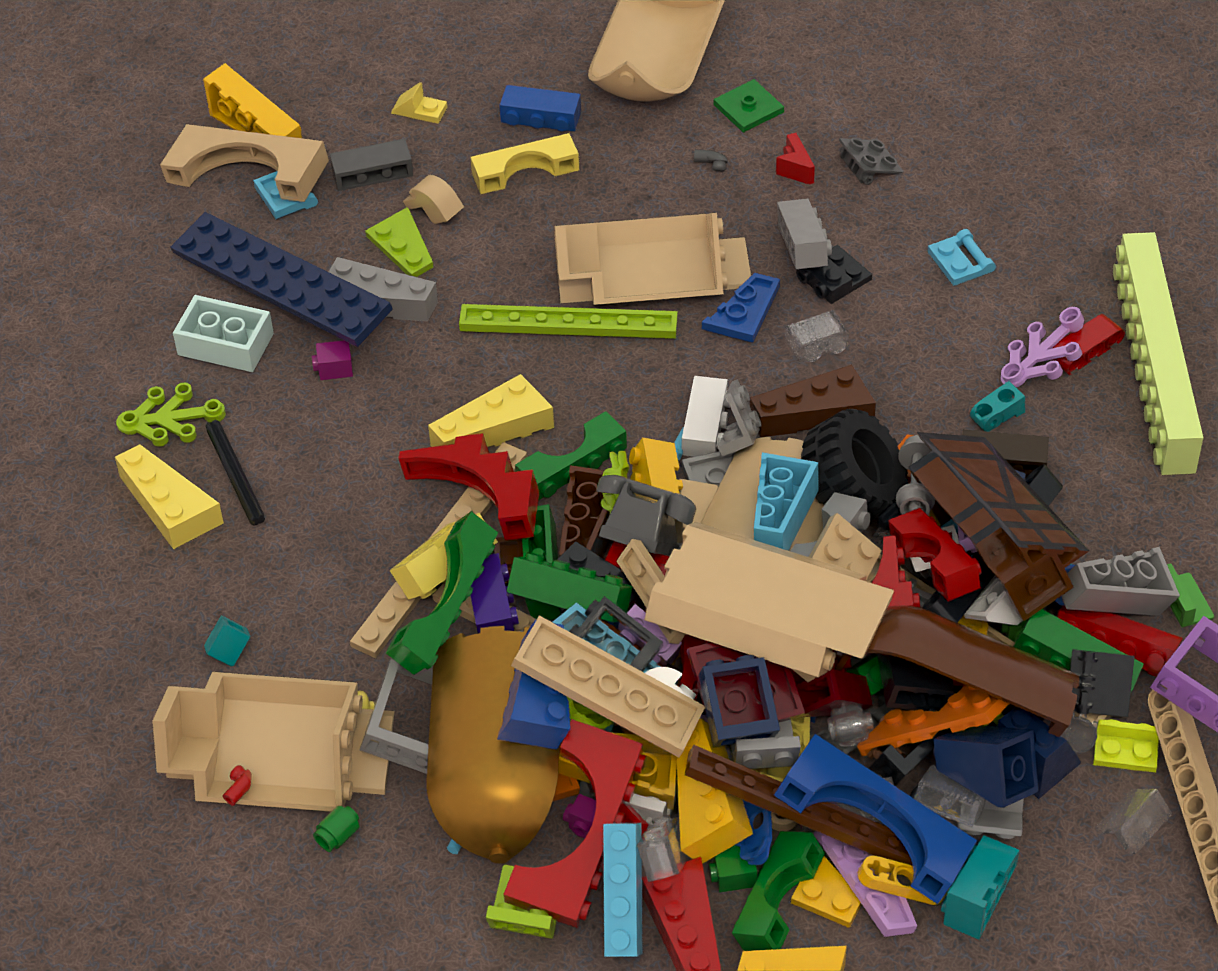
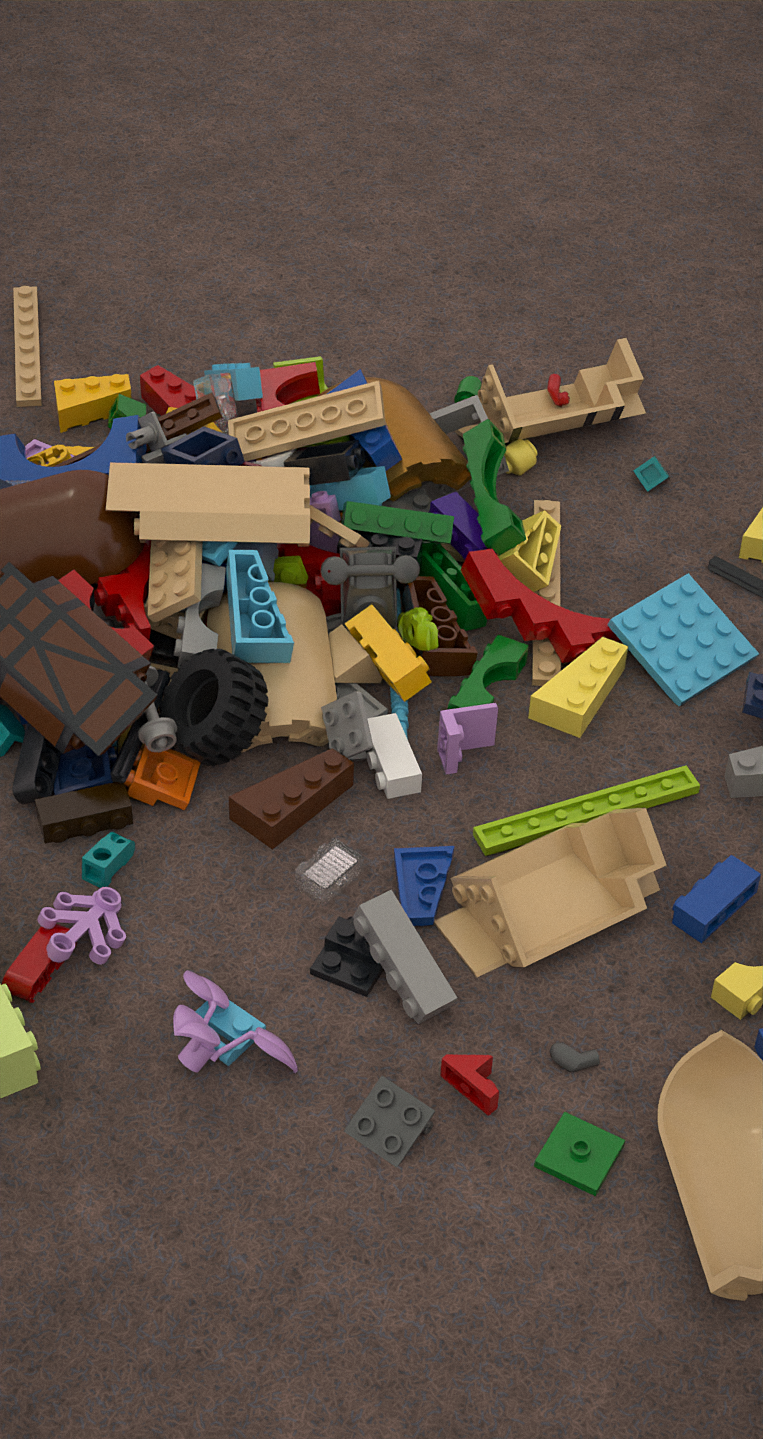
camera: 150 degrees right, 5 degrees down
(365, 429) = (682, 639): none -> medium azure plate
(522, 218) = (715, 898): none -> blue brick
(632, 400) = (465, 730): none -> lavender bracket
(777, 752) = (150, 433): none -> light grey bracket
(968, 260) = (204, 1038): none -> lavender plant

